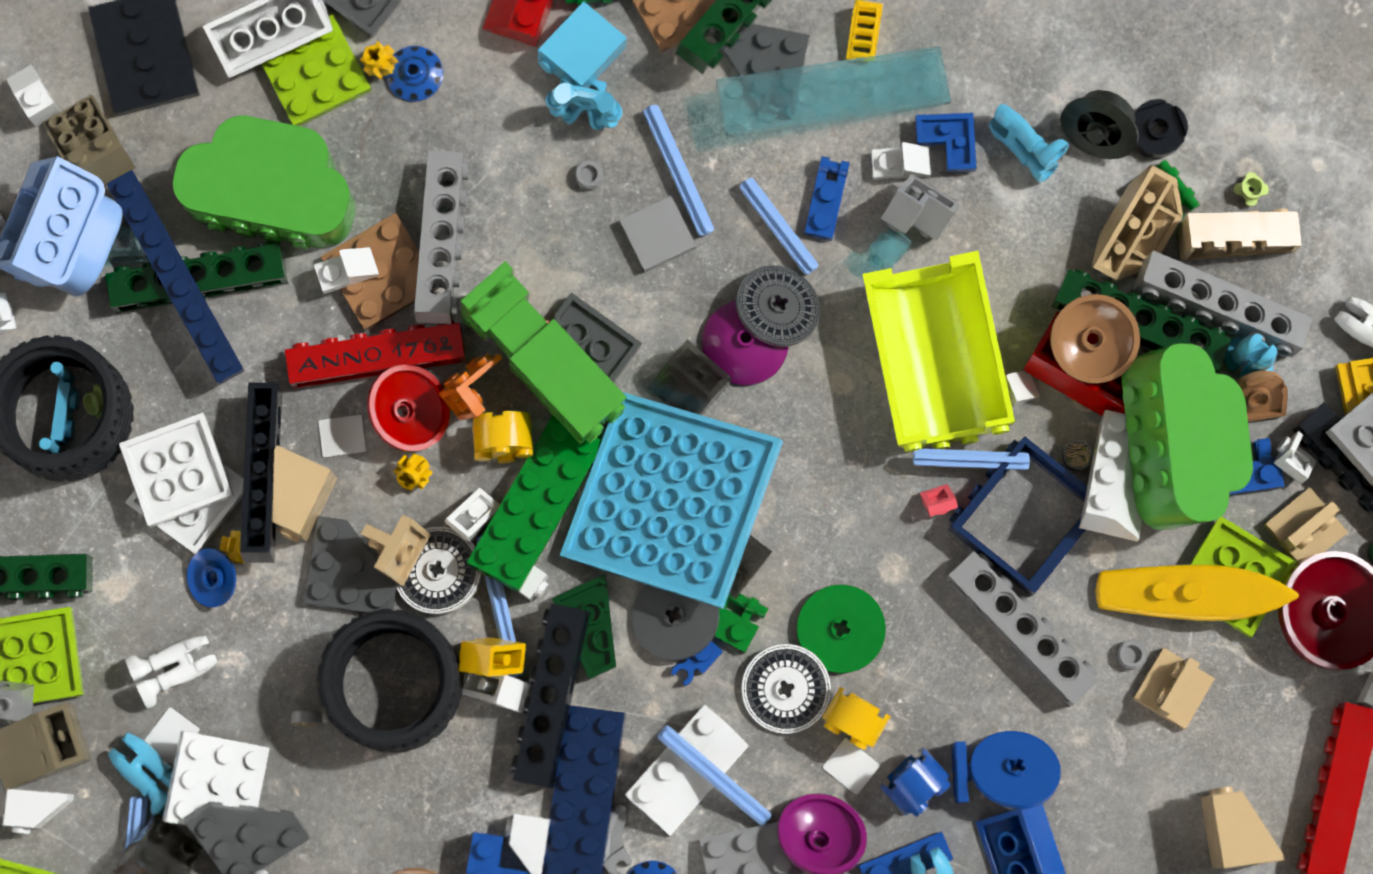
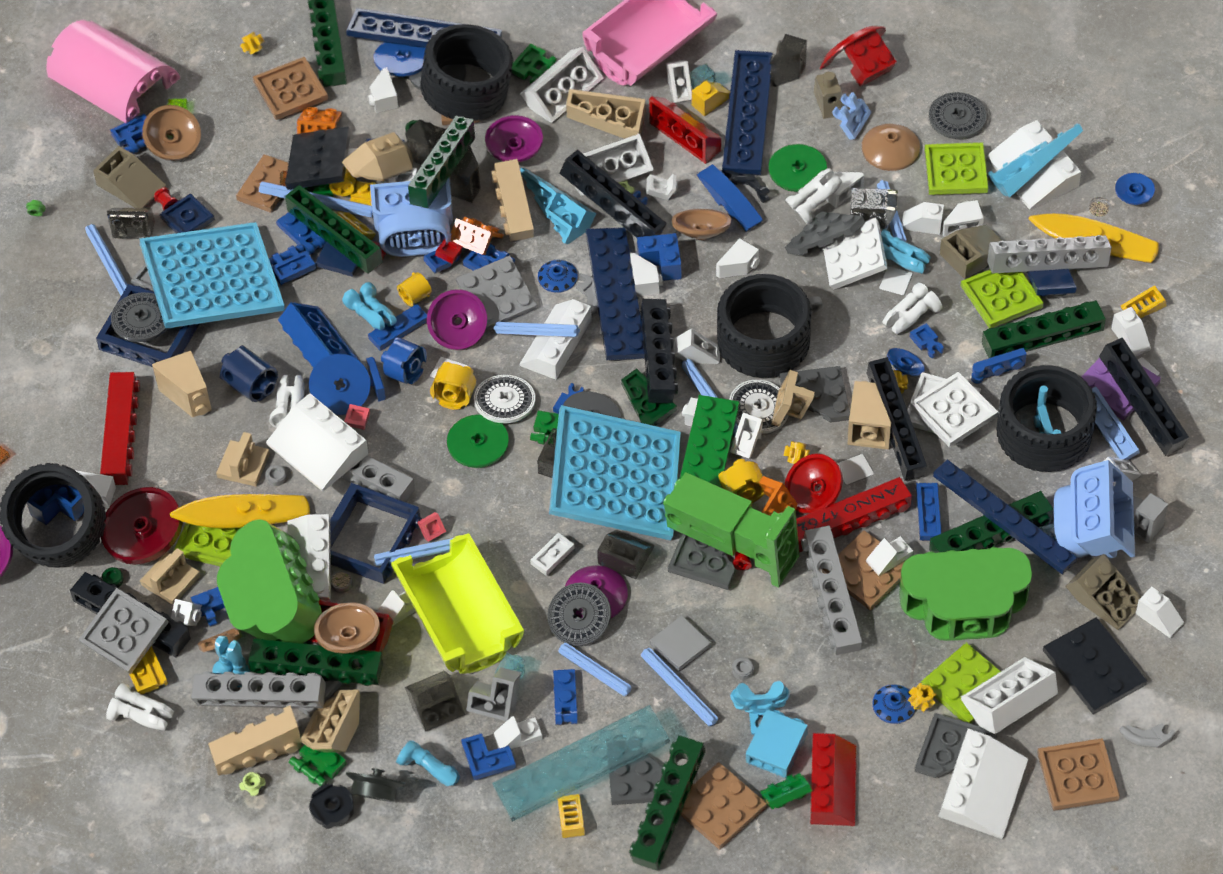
camera: 170 degrees right, 25 degrees down
(87, 535) = (997, 365): none -> blue plate
(92, 827) = (924, 218): none -> white slope
(169, 614) = (926, 338): none -> blue plate
(268, 332) = (928, 510): none -> blue plate
(382, 831) = (738, 260): none -> white slope
(491, 657) = (703, 355): yellow hinge -> none
(787, 412) = (552, 554): none -> white plate
(997, 235) = (435, 700): none -> clear smoke slope
(1000, 715) = (357, 416): none -> coral plate
(1070, 663) = (317, 443): none -> white slope
(1076, 776) = (283, 393): none -> white piece
(1140, 822) = (248, 374): none -> dark blue cylinder

